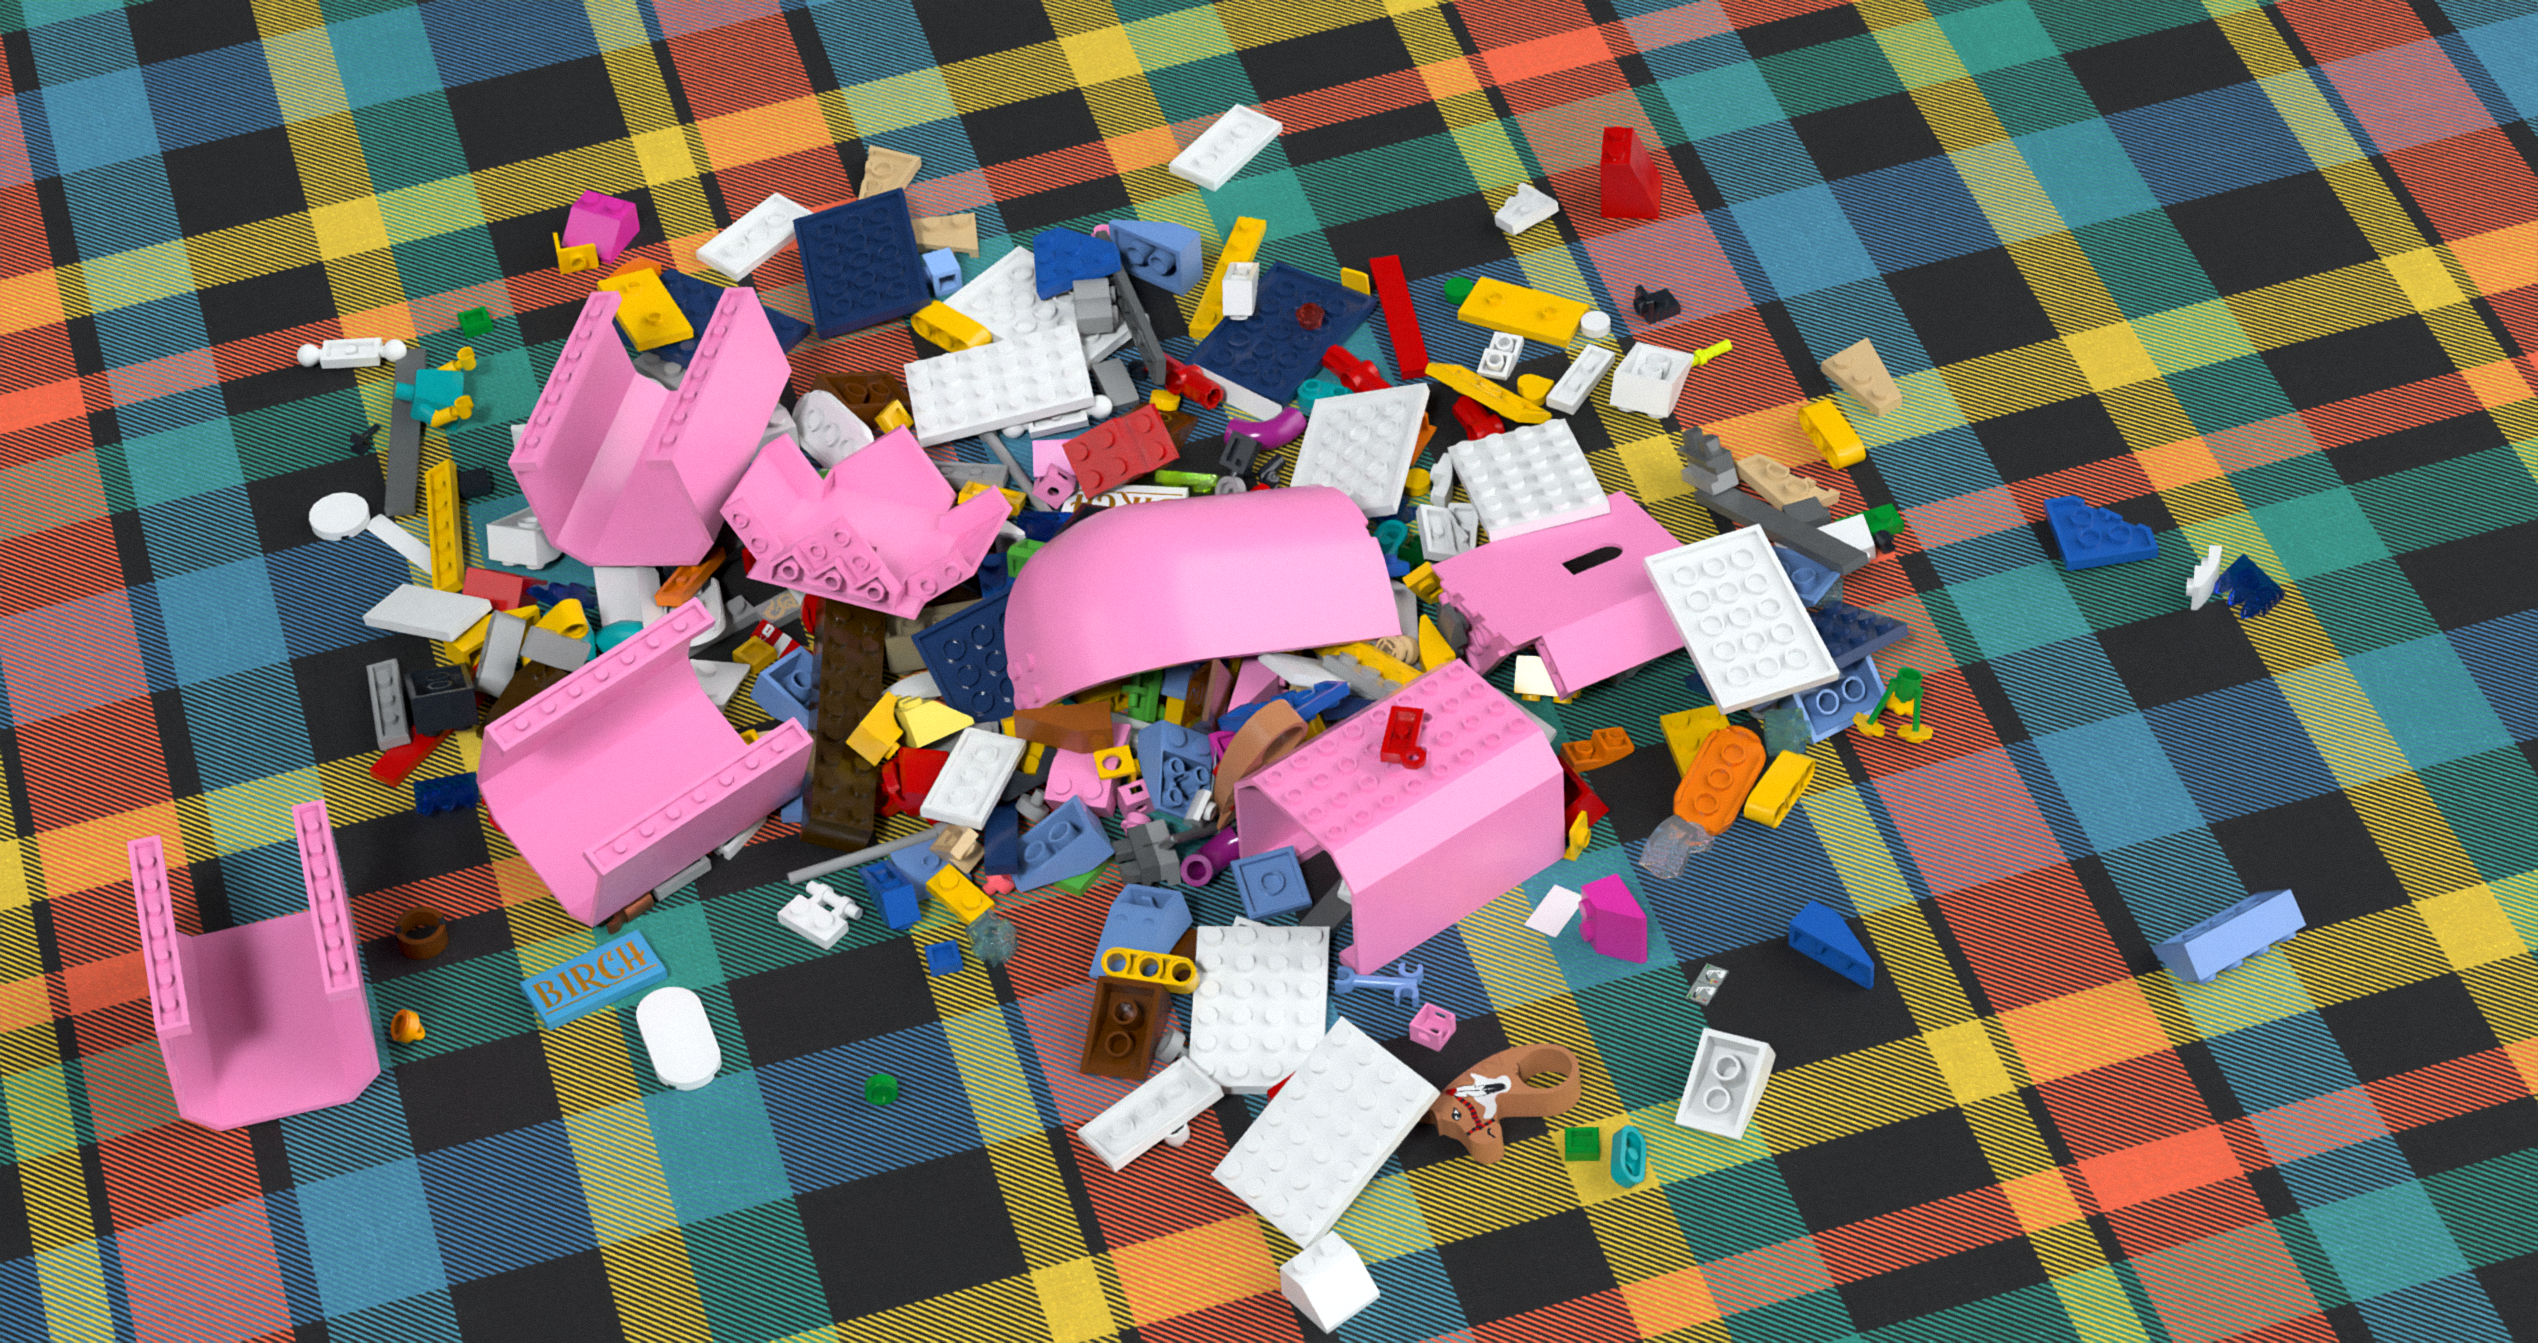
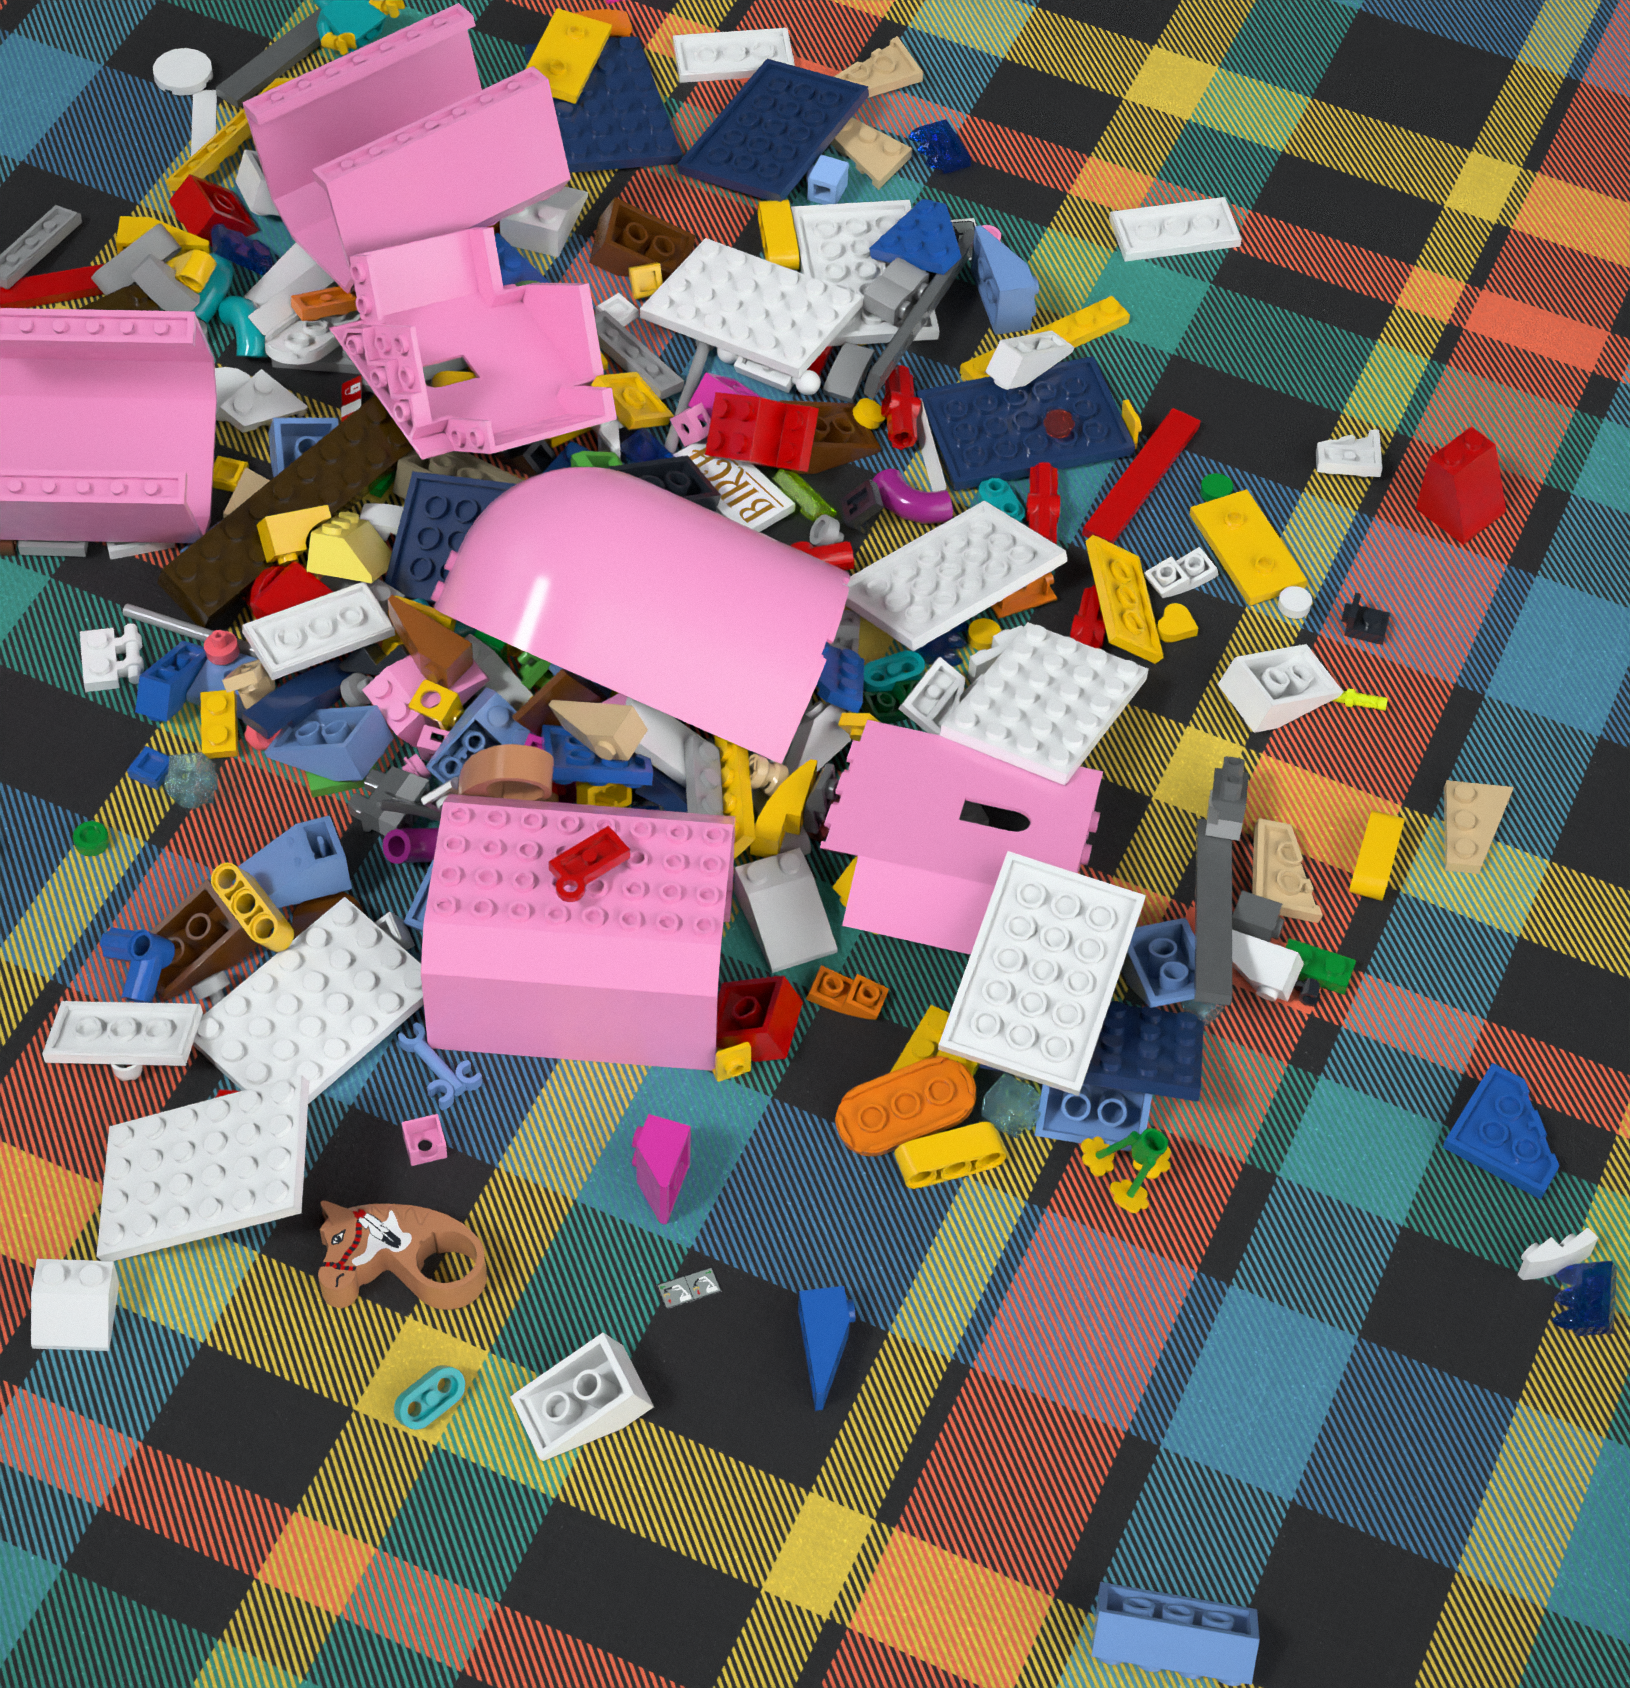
camera: 35 degrees right, 10 degrees up
(362, 442) = (264, 21): black hand -> none
(427, 612) = (135, 192): white tile -> none
(442, 699) = (58, 268): black slope -> none
(755, 653) = (324, 401): yellow tile -> none
(828, 428) = (583, 250): white tile -> none
(900, 848) = (221, 647): none -> coral tile
(959, 1029) = (91, 838): none -> green tile
(995, 196) = (942, 146): none -> clear blue plate
(1089, 1060) = (147, 956): none -> blue piece
(1268, 472) = (877, 537): black arm -> none
(1283, 676) = (605, 729): none -> tan slope
(1554, 911) = (634, 1113): white sticker -> none
(1580, 379) = (1222, 643): white plate -> none
(1581, 1143) = (416, 1350): green tile -> none
(1671, 846) = (796, 1133): clear brick -> none

